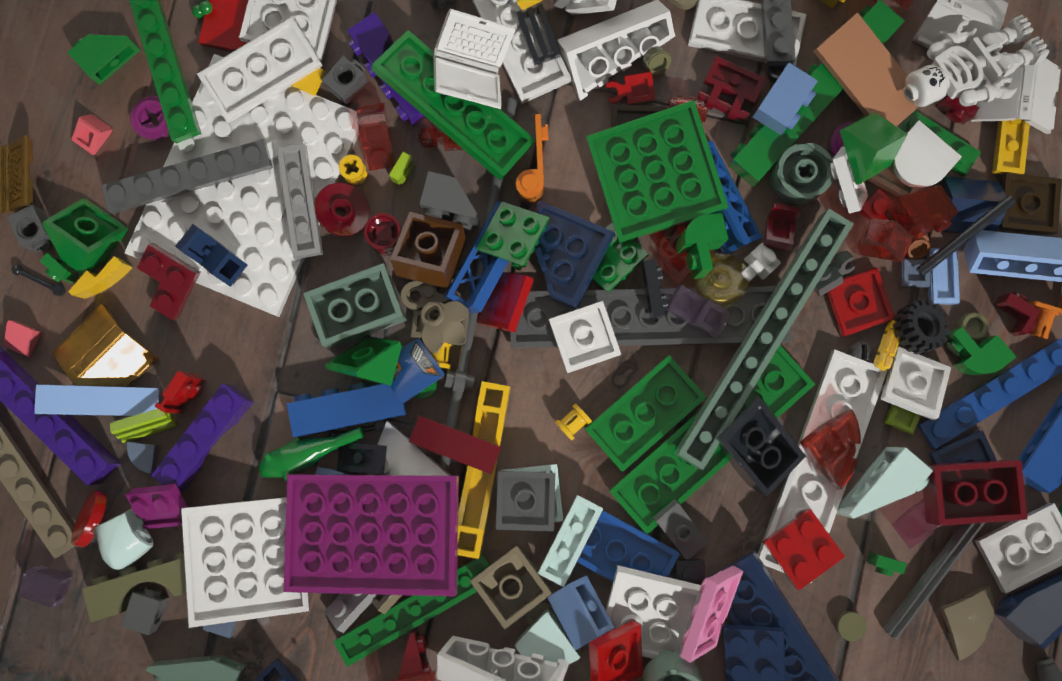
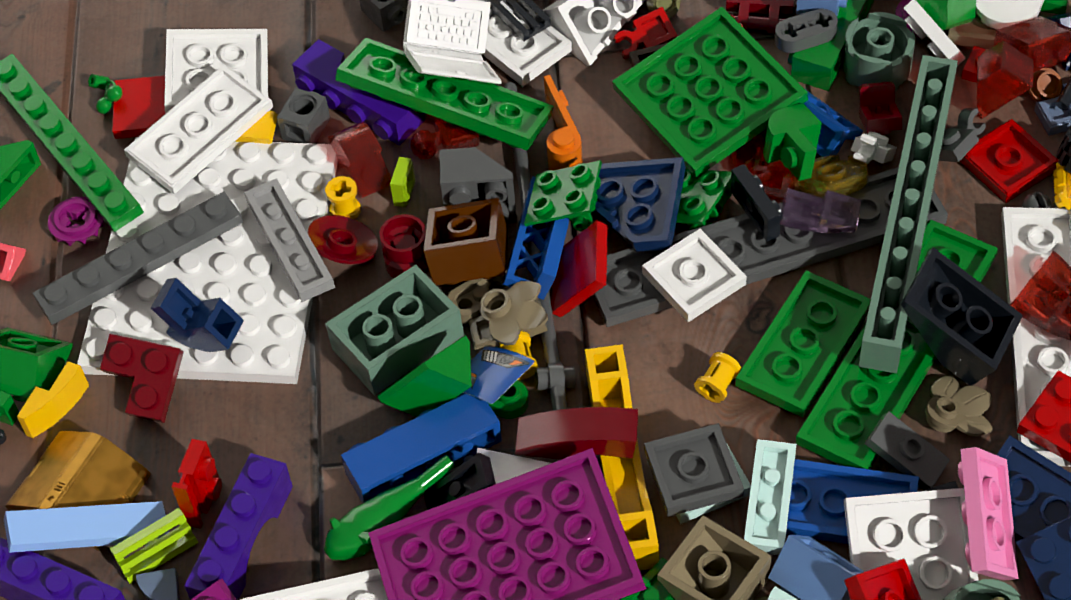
camera: 15 degrees left, 30 degrees down
(736, 502) = (958, 407): none -> dark tan plate
(752, 134) = (806, 30): none -> dark grey beam

